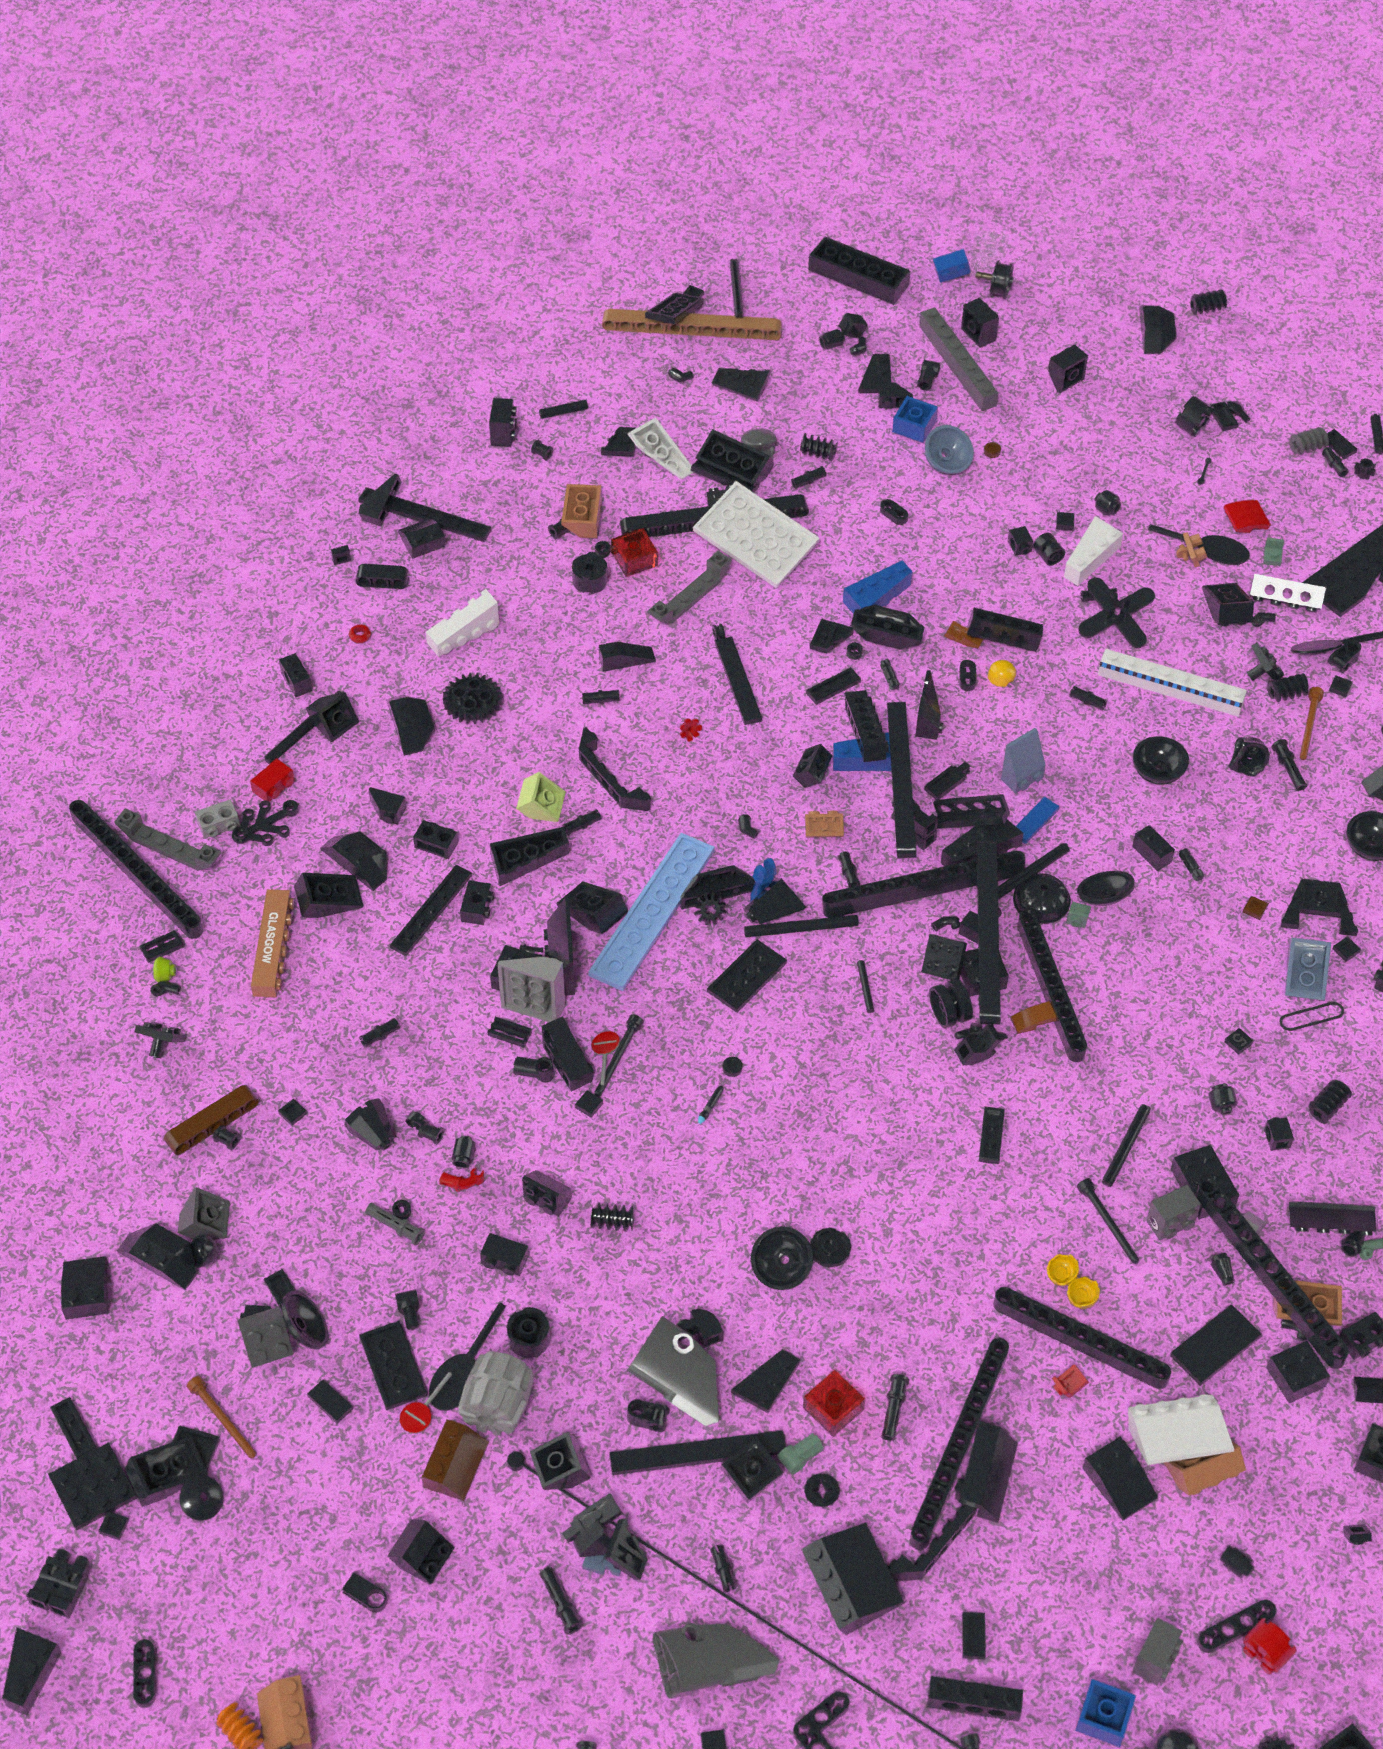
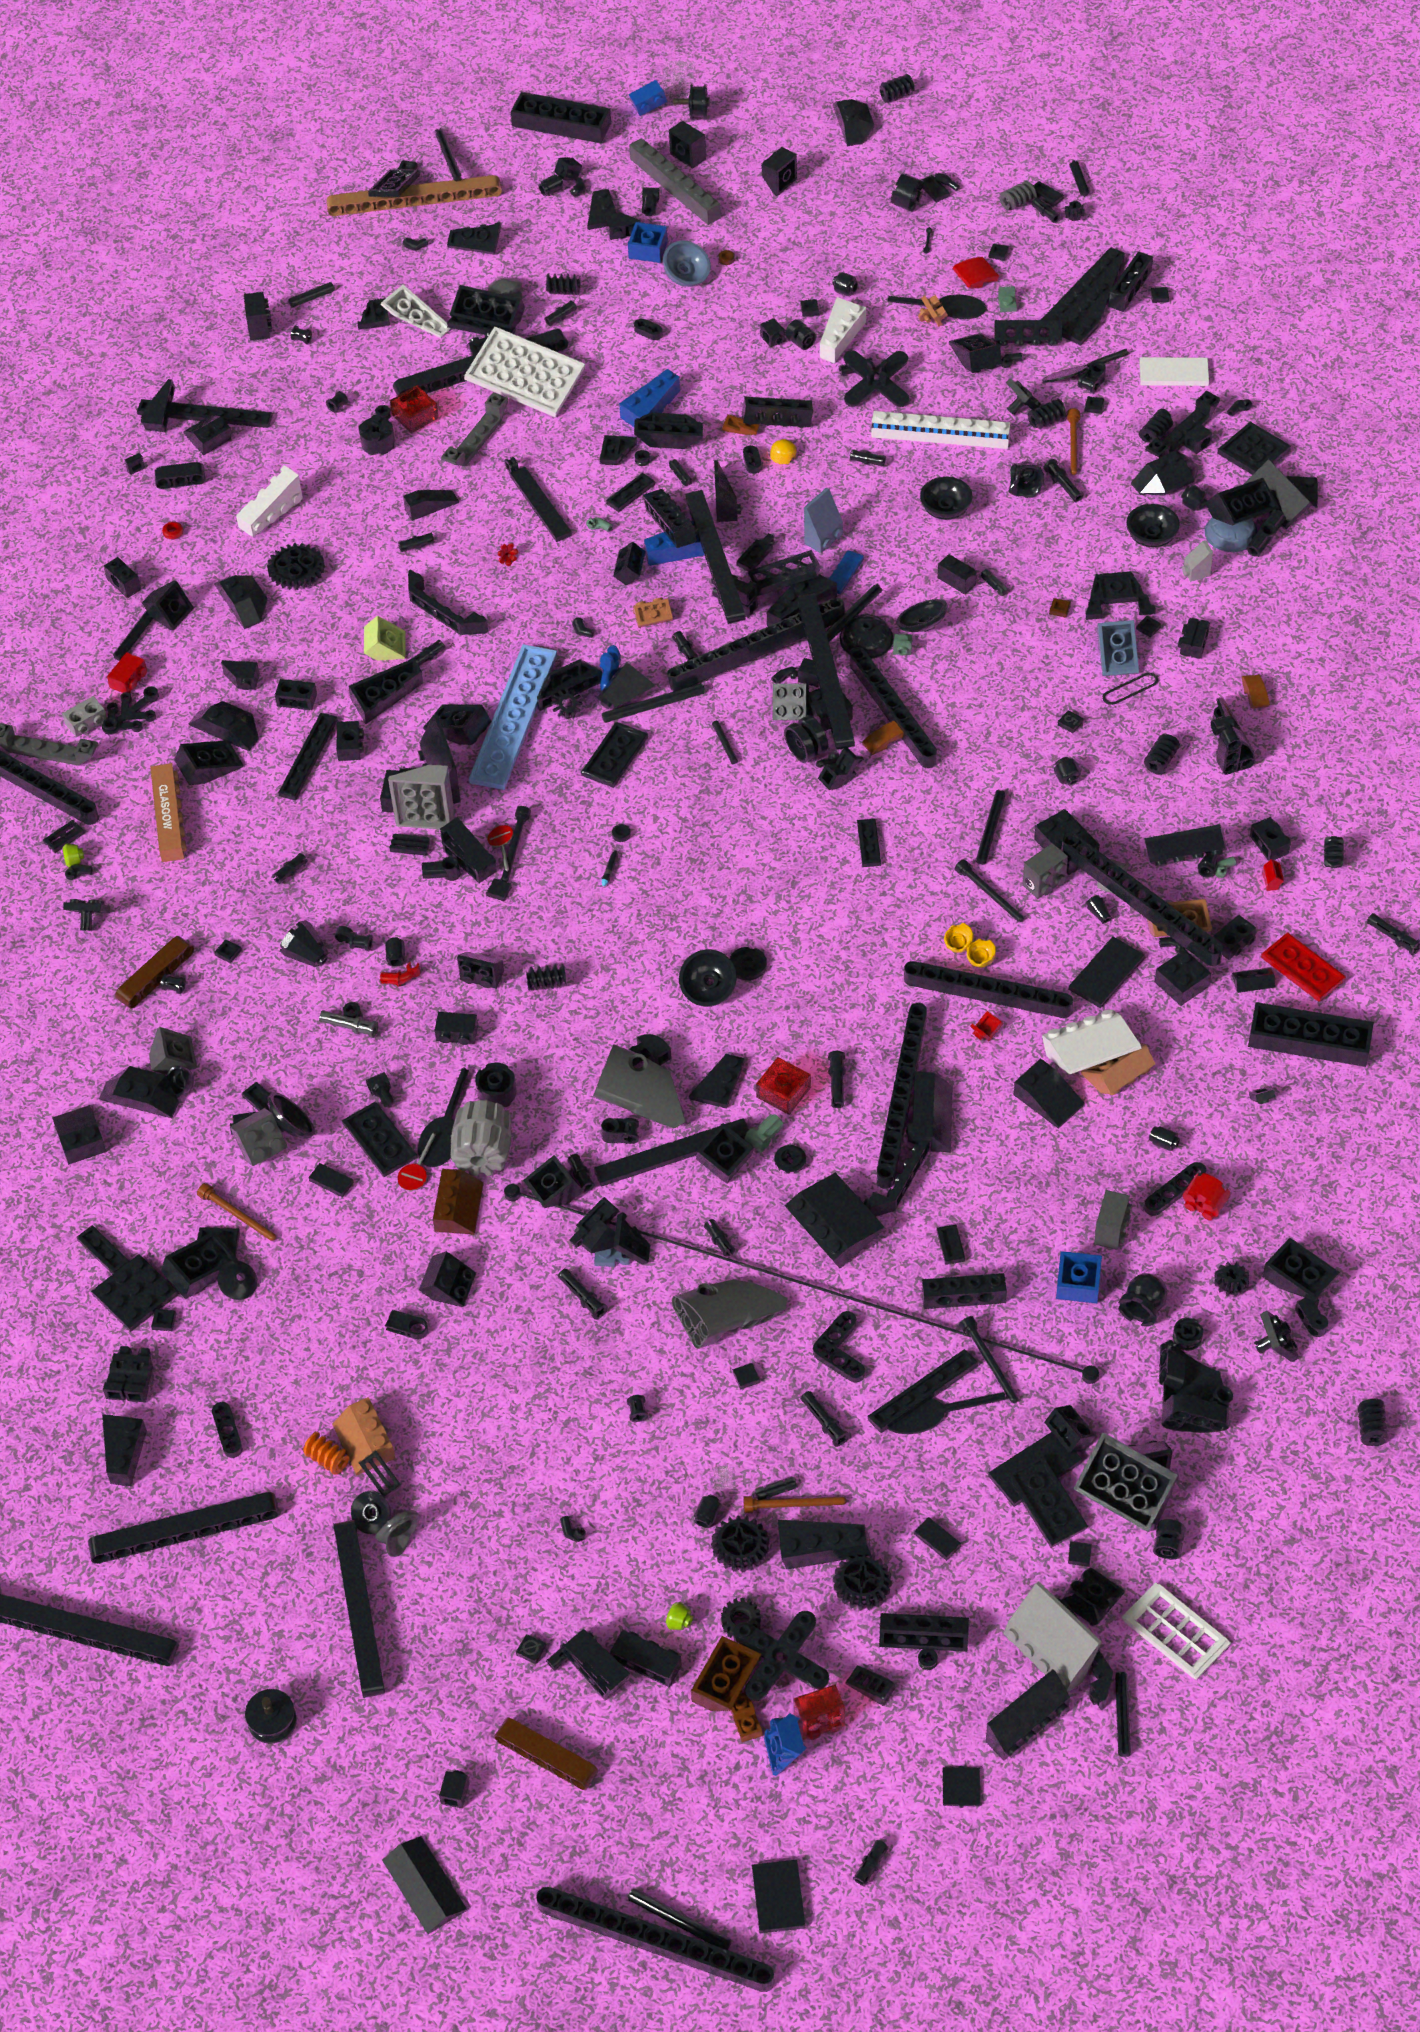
camera: 10 degrees left, 0 degrees up
(582, 509) = (355, 380): nougat slope -> none
(593, 1454) = (580, 1172): none -> black pin
(792, 714) = (599, 523): none -> sand green arm
(1275, 498) = (998, 252): none -> black tile
(1278, 1133) = (1123, 789): black brick -> none

